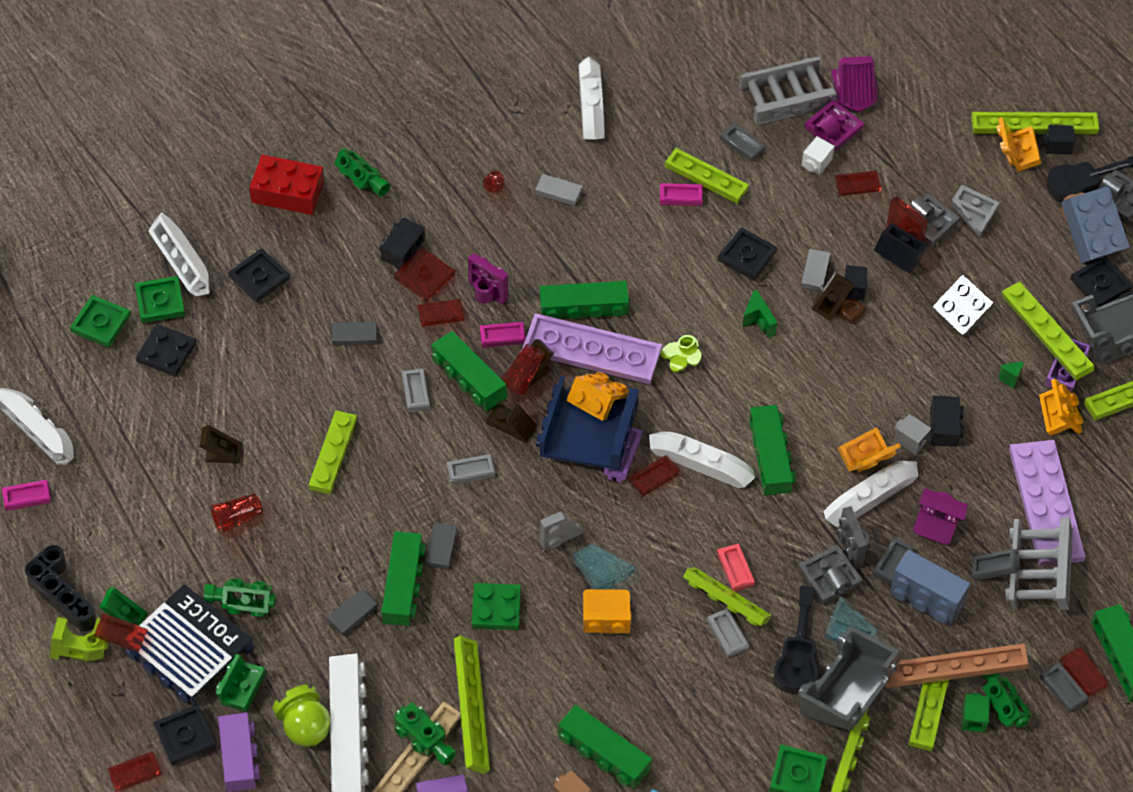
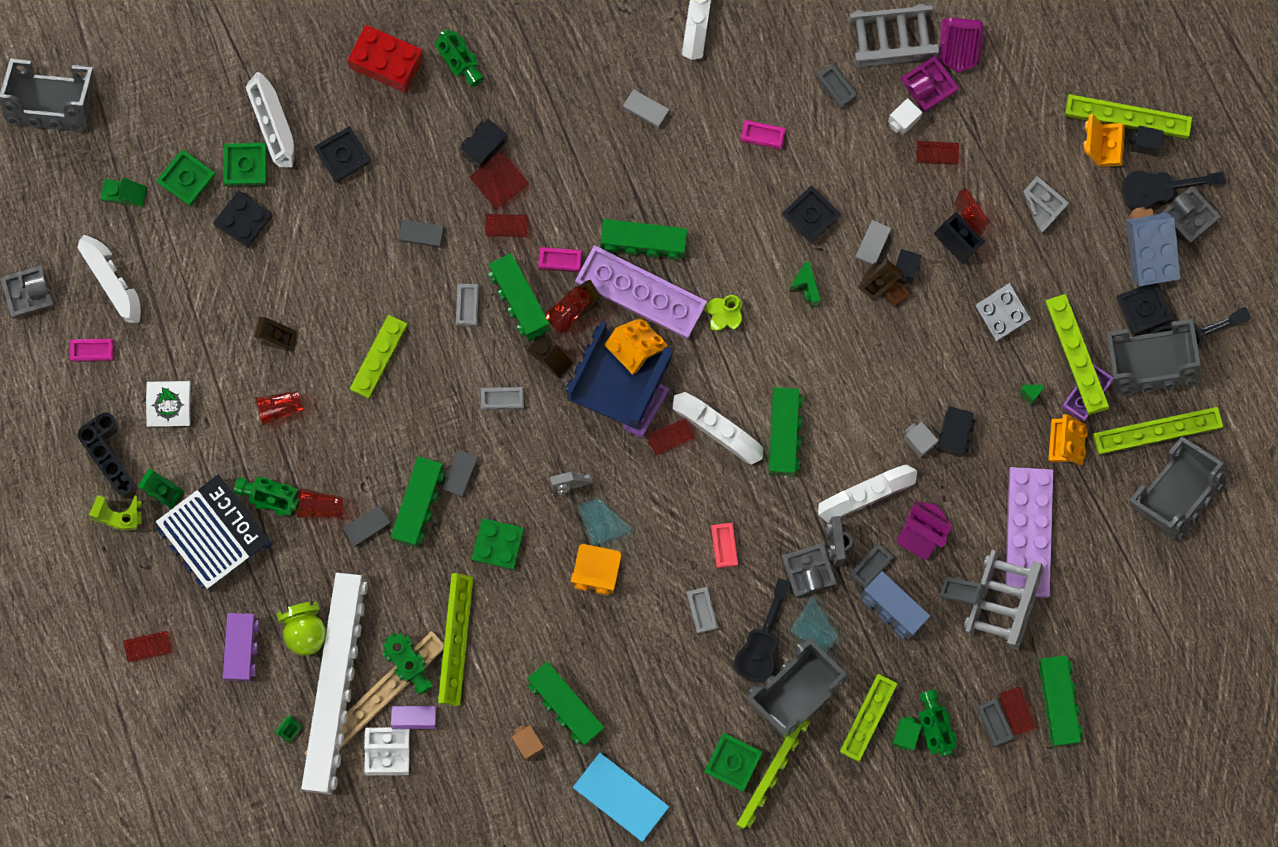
camera: 10 degrees right, 20 degrees up
(39, 345) = (123, 192): none -> green slope
(117, 530) = (168, 403): none -> white slope
(120, 633) = (152, 516): clear red tile -> none
(184, 734) = (196, 621): black plate -> none
(240, 684) = (253, 581): green bracket -> none
(298, 598) = (319, 505): none -> clear red plant
(489, 277) = (551, 197): magenta plate -> none
(493, 181) = (584, 89): clear red piece -> none
(707, 175) = (791, 119): lime plate -> none
(720, 592) = (709, 575): lime plate -> none
(866, 451) = (873, 452): light orange bracket -> none
(939, 218) = (999, 207): flat silver plate -> none
(959, 665) = (902, 691): nougat plate -> none

